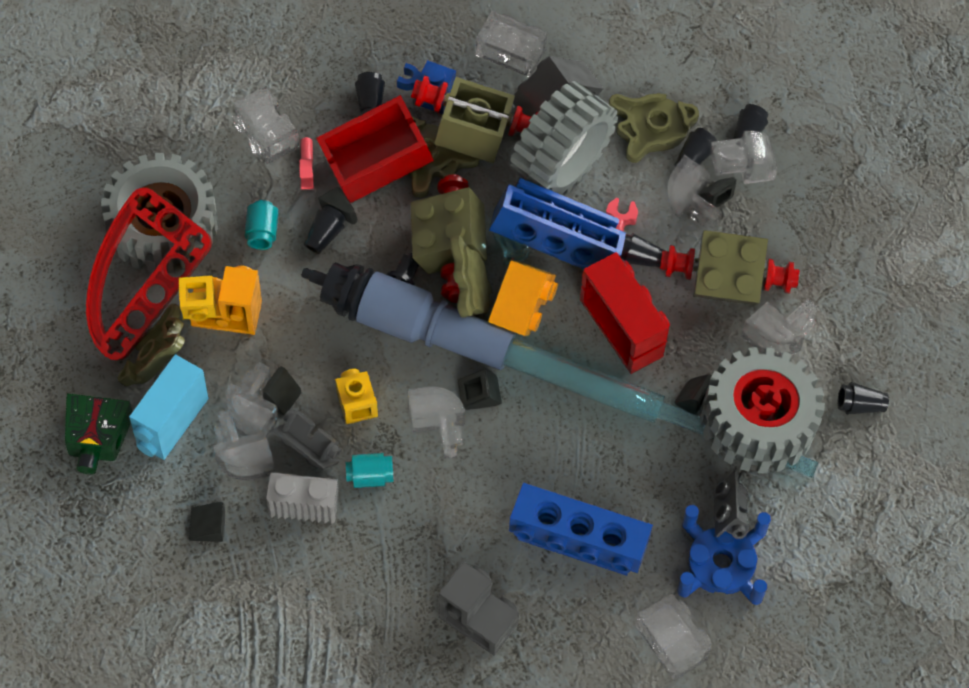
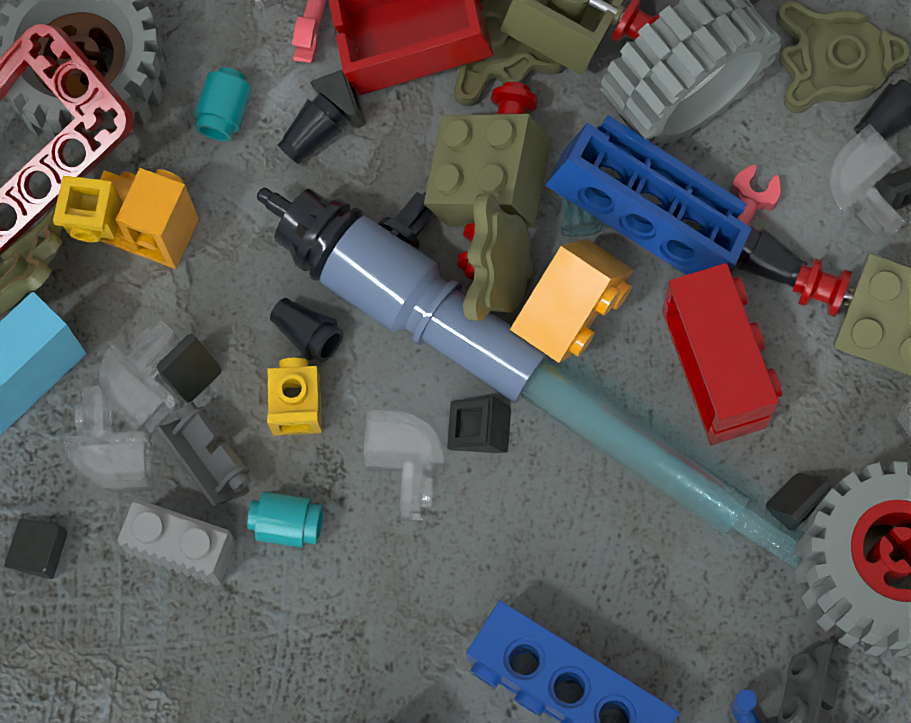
camera: 20 degrees right, 10 degrees up
(353, 352) = (307, 329): none -> black cone

